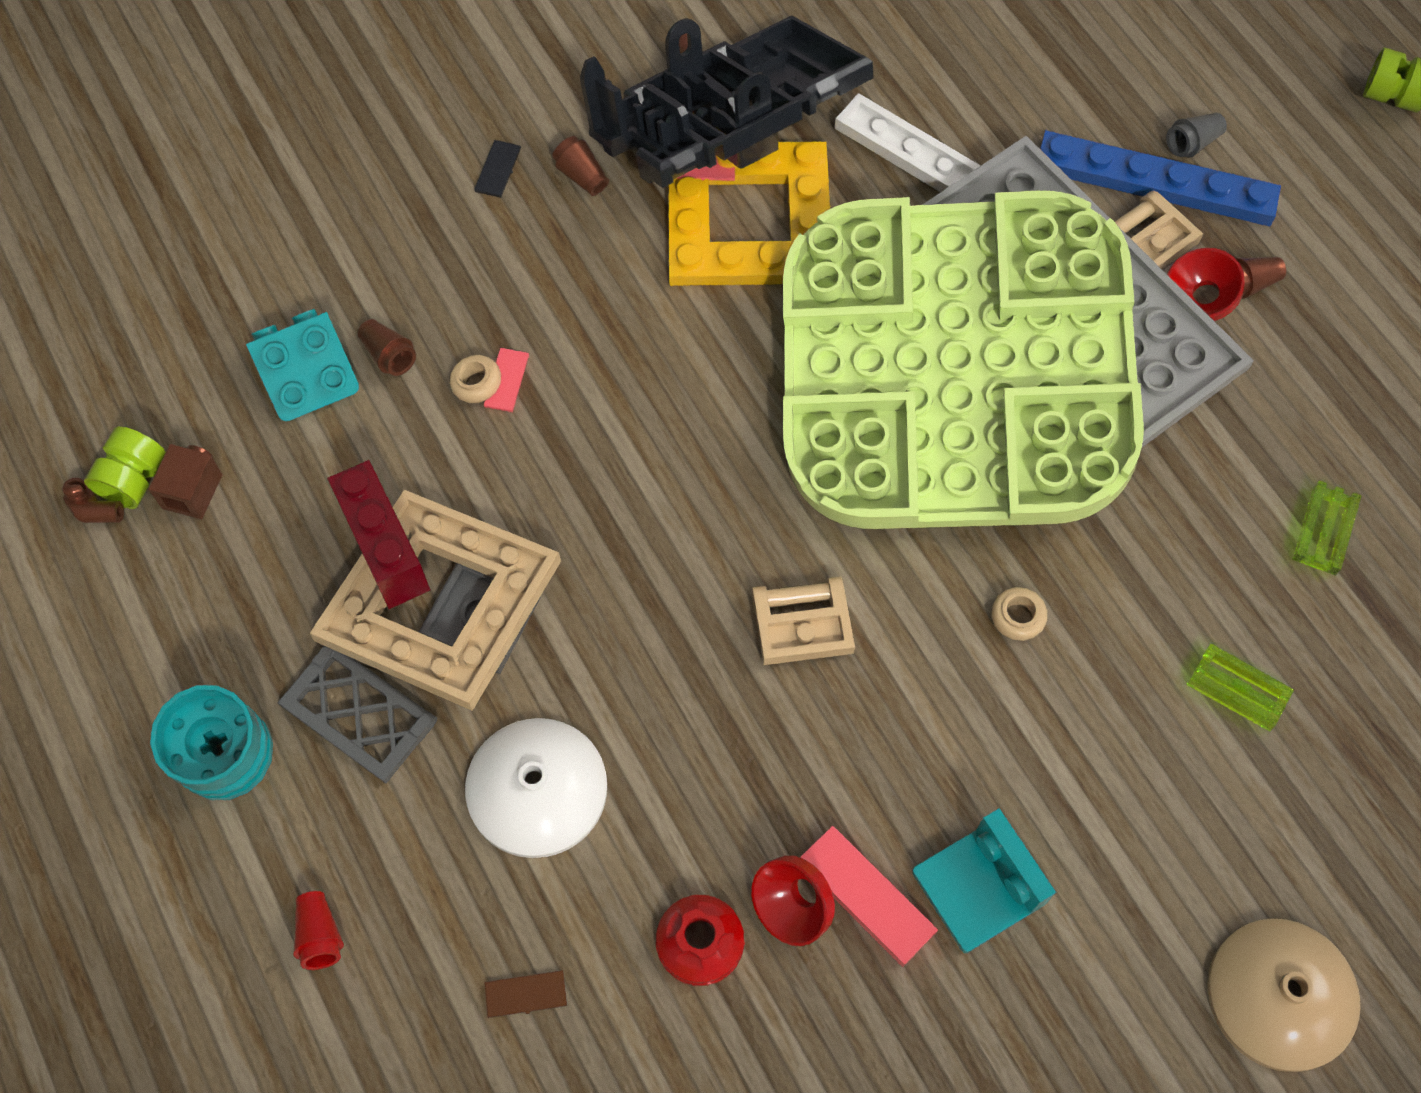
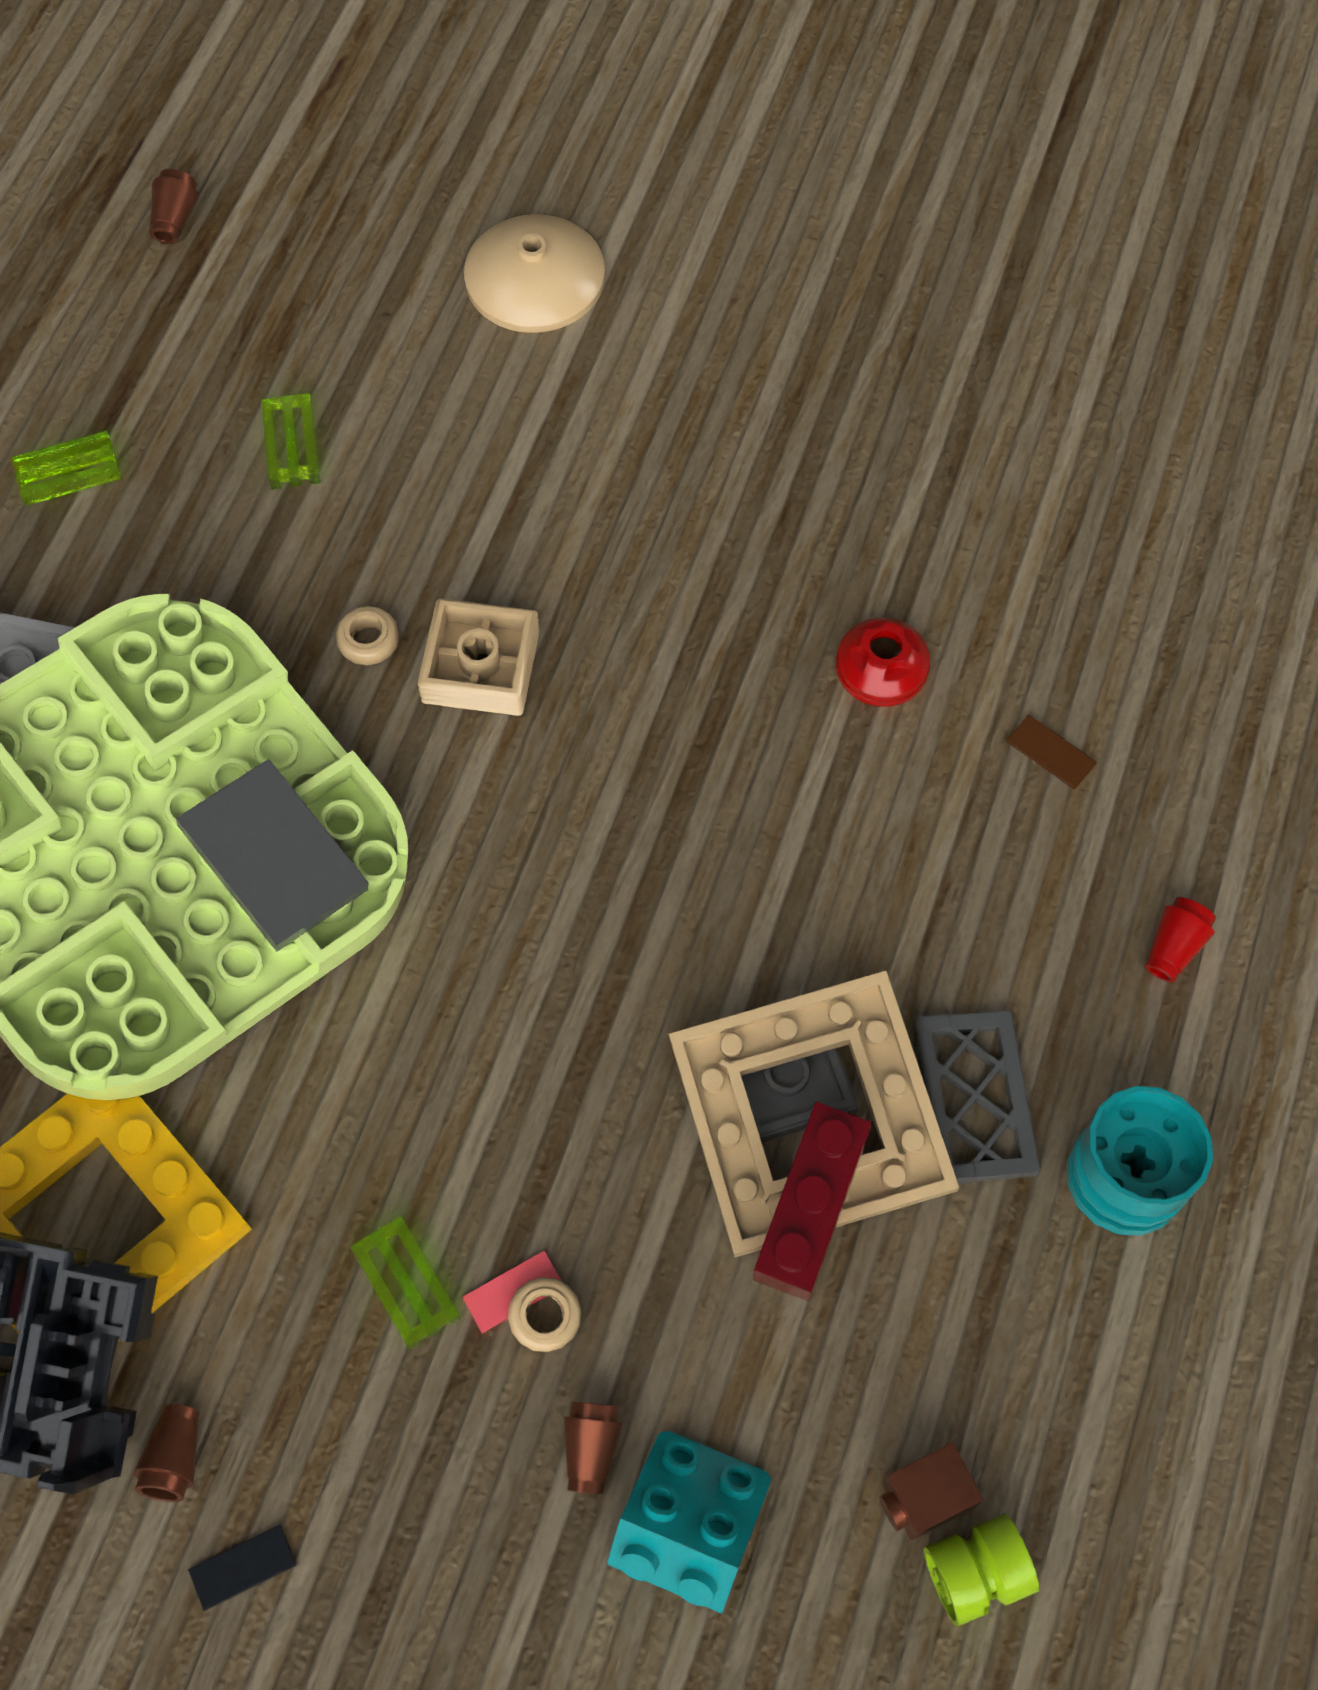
camera: 130 degrees left, 0 degrees up
(87, 507) = (1055, 1578): copper arm -> none
(540, 816) = (881, 915): white dish -> none
(561, 336) = (429, 1324): none -> clear neon green tile
(784, 909) = (790, 602): red piece -> none
(807, 632) = (542, 778): tan plate -> none
(870, 897) = (729, 573): coral tile -> none
(876, 411) = (272, 854): none -> dark grey tile
(935, 633) = (457, 636): none -> tan brick
(984, 882) = (641, 496): teal bracket -> none

